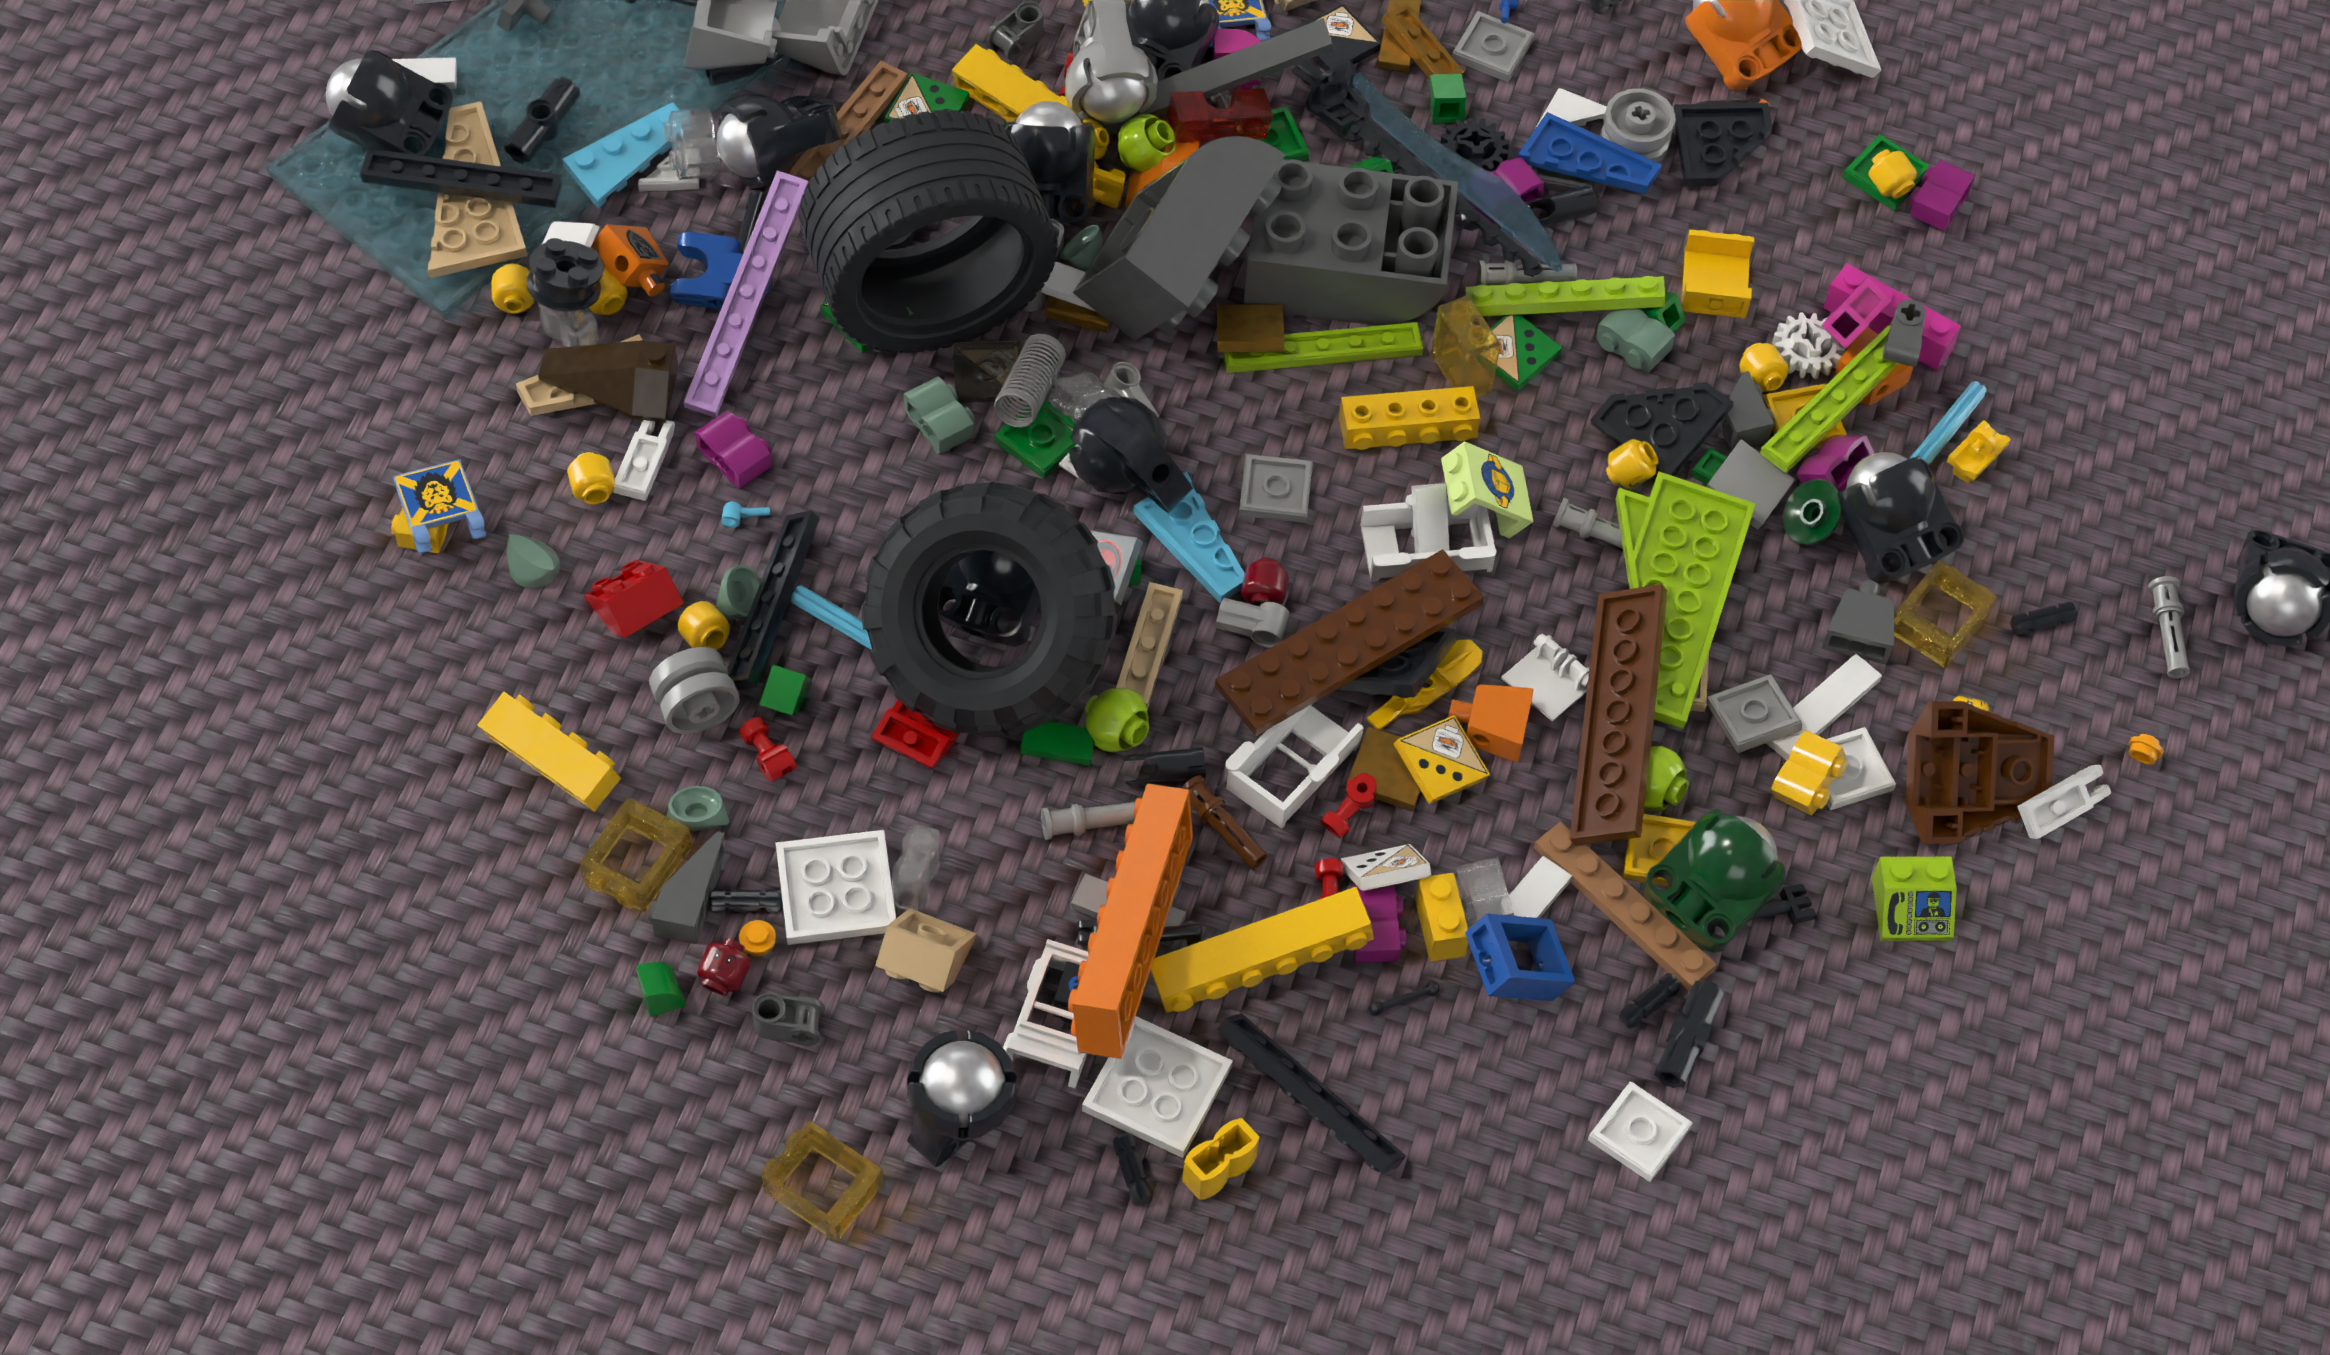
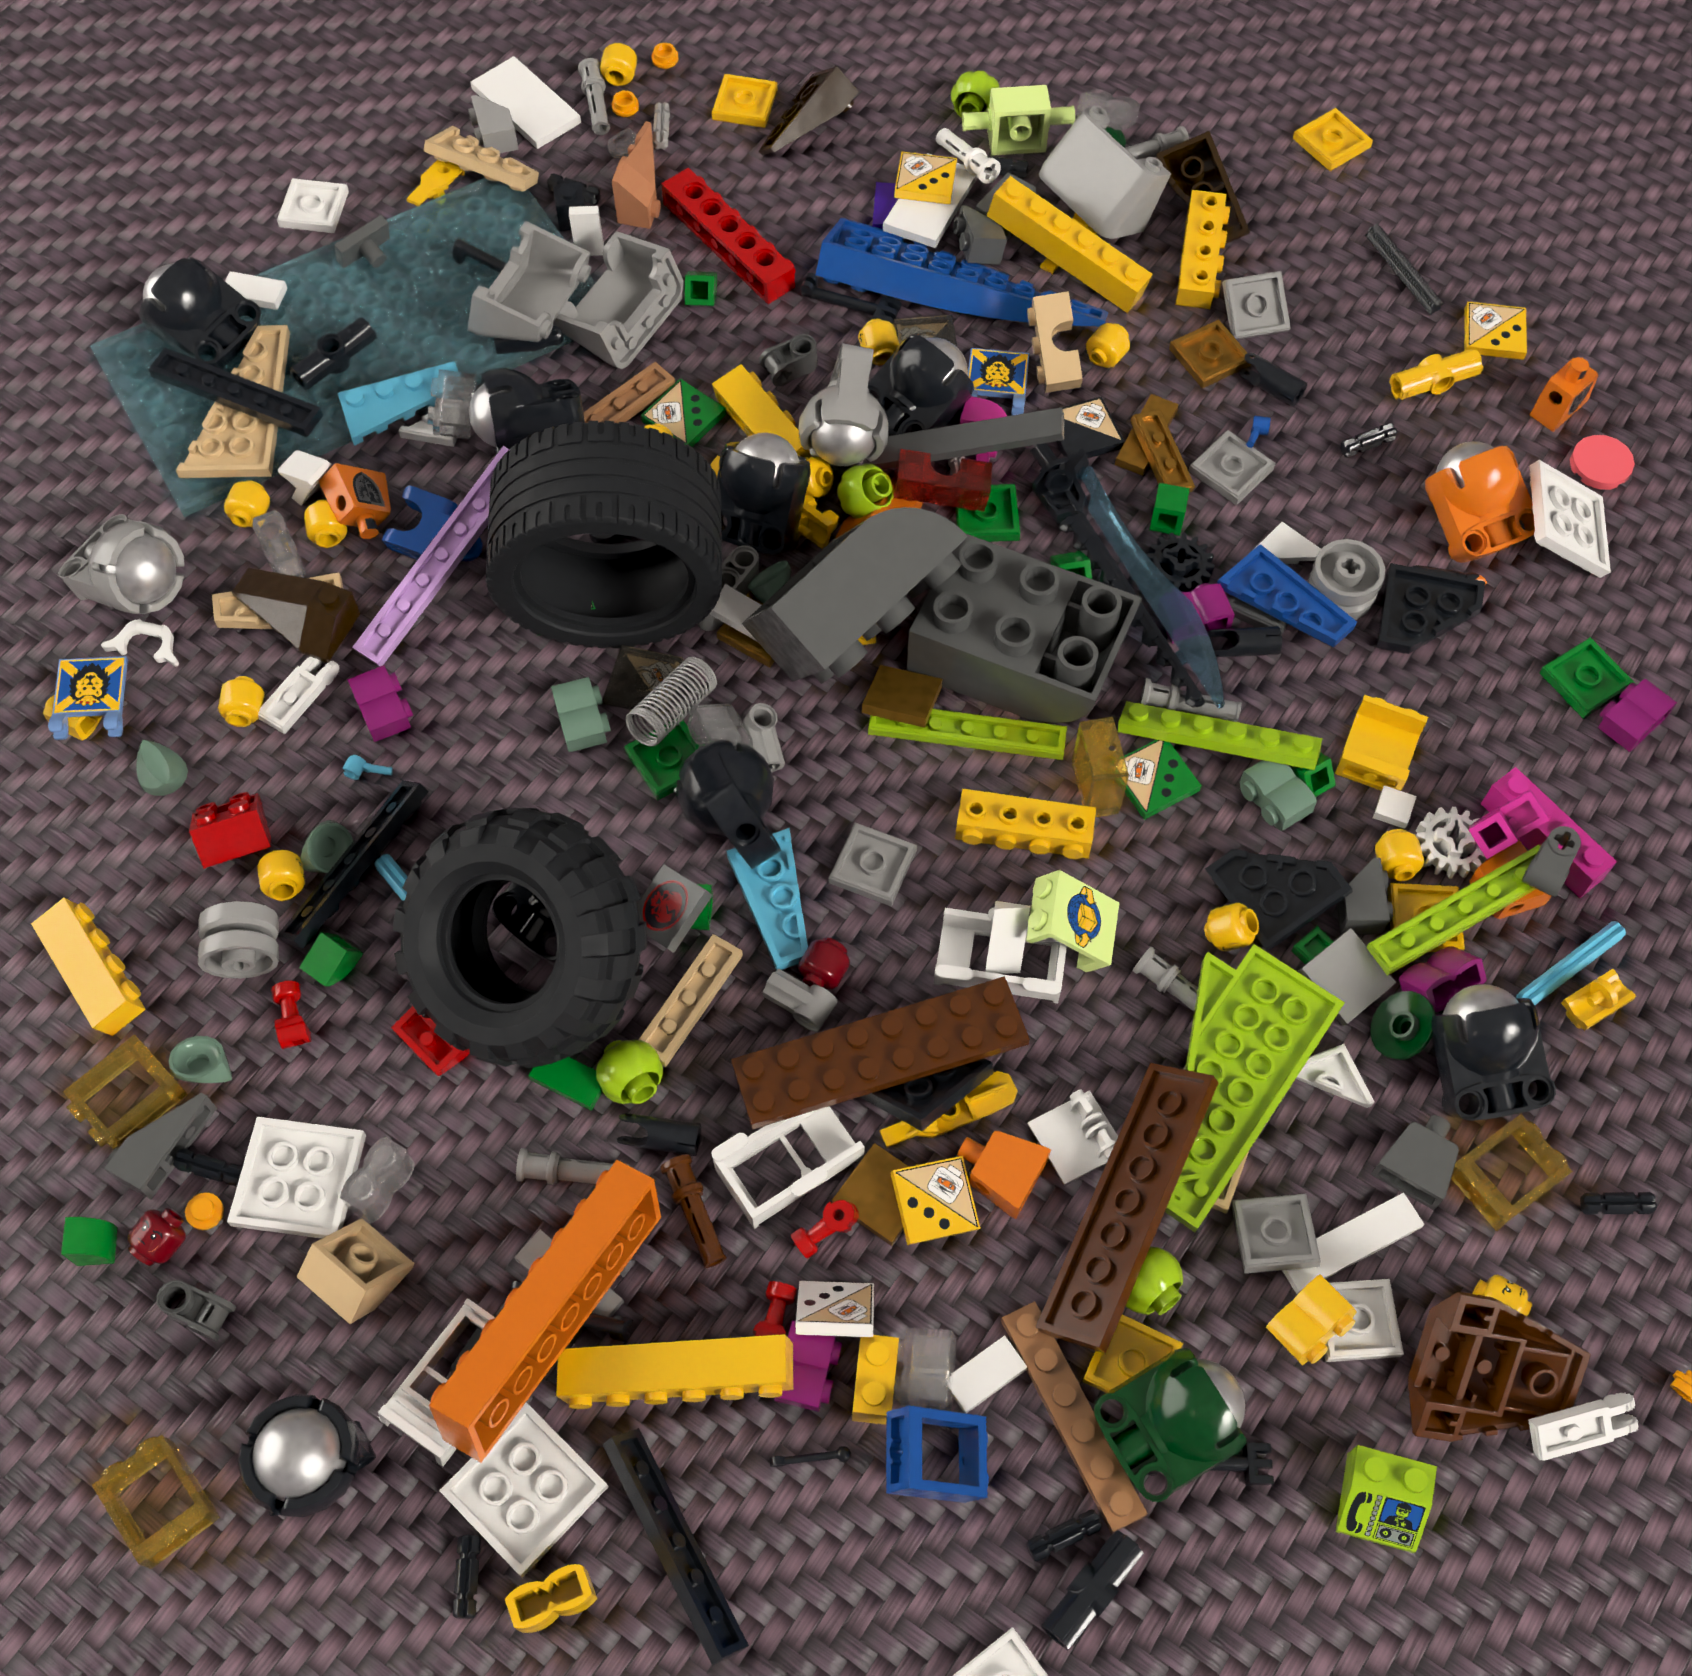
camera: 20 degrees right, 5 degrees up
(417, 372) = (126, 566): none -> light grey piece
(448, 433) = (138, 627): none -> white helmet
(565, 275) = (280, 503): black wheel -> none
(1745, 327) = (1394, 807): none -> white tile
(1767, 571) = (1336, 1074): none -> white tile
(1892, 173) = (1590, 682): yellow head -> none

